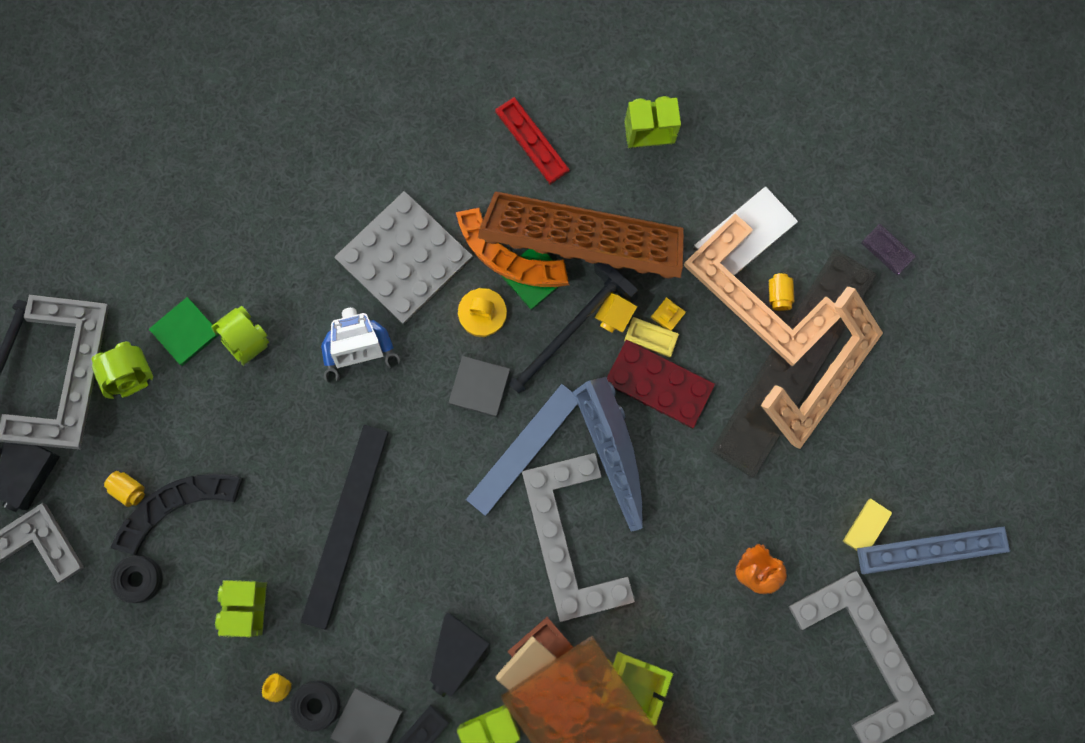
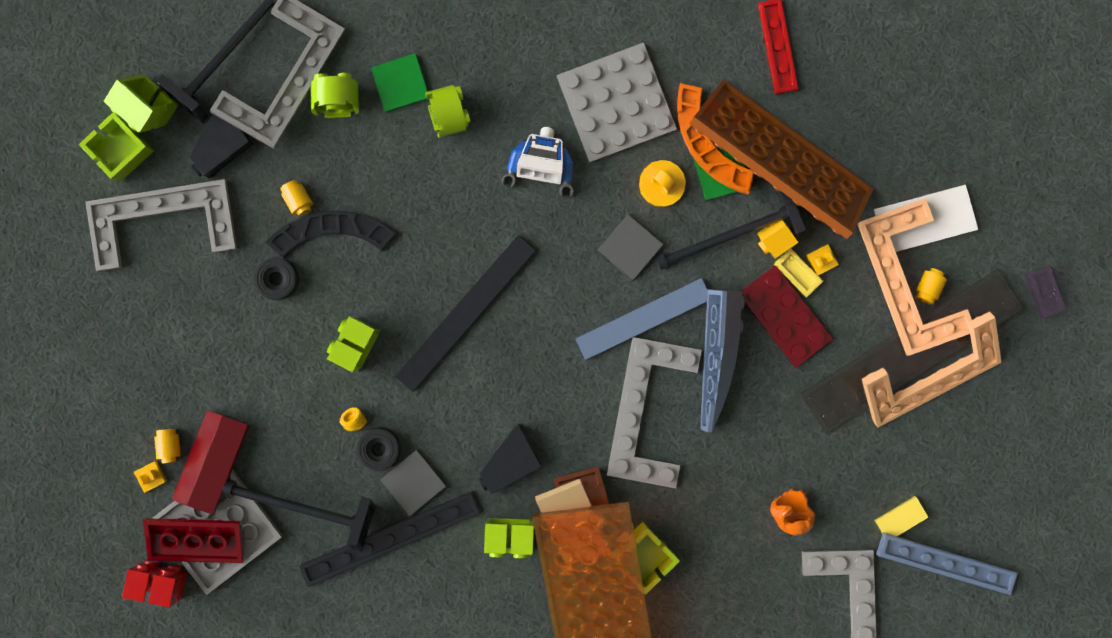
camera: 30 degrees right, 10 degrees up
(652, 122) = (893, 81): lime piece -> none

